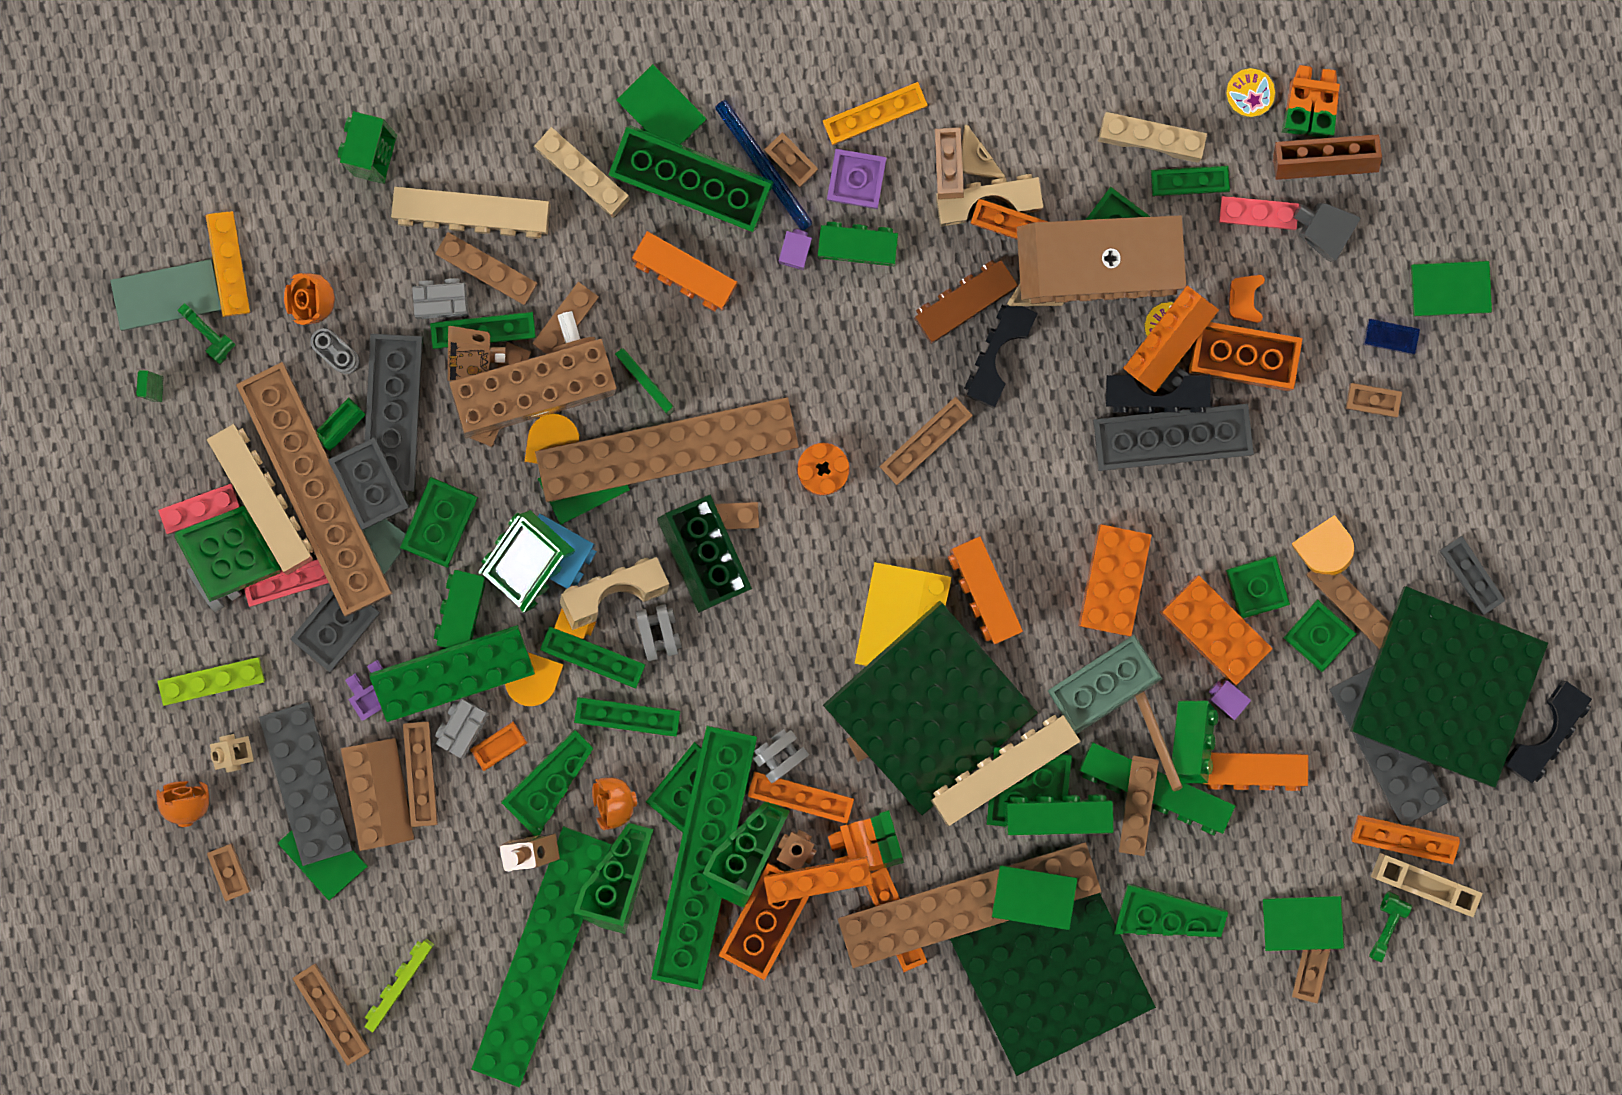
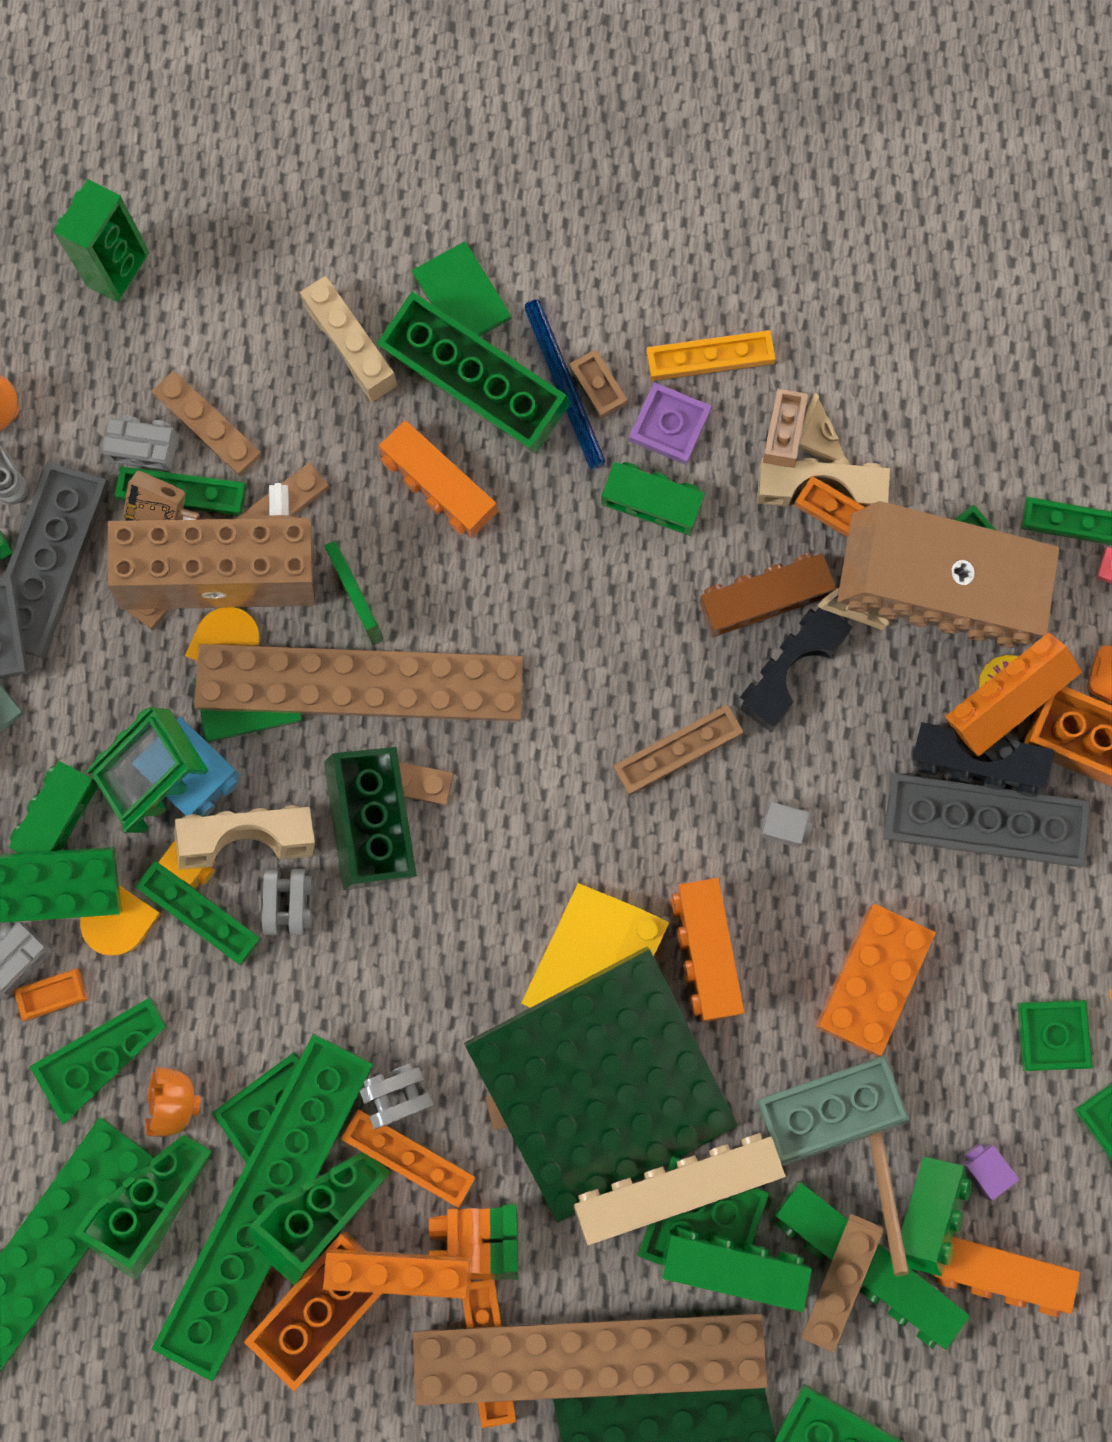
camera: 15 degrees right, 10 degrees down
(438, 522) = (60, 701): green tile -> none
(470, 211) = (206, 352): tan brick -> none
(522, 852) = (30, 1136): medium nougat torso -> none
(627, 716) = (219, 998): green plate -> none
(793, 859) = (371, 1230): medium nougat brick -> none
(795, 249) = (576, 485): medium lavender brick -> none
(827, 483) = (543, 733): orange brick -> none
(1022, 479) = (786, 825): none -> light grey brick
(1034, 897) = (677, 1372): green tile -> none
(1168, 139) = (1063, 466): tan arch -> none
(1216, 630) = (991, 1077): orange brick -> none

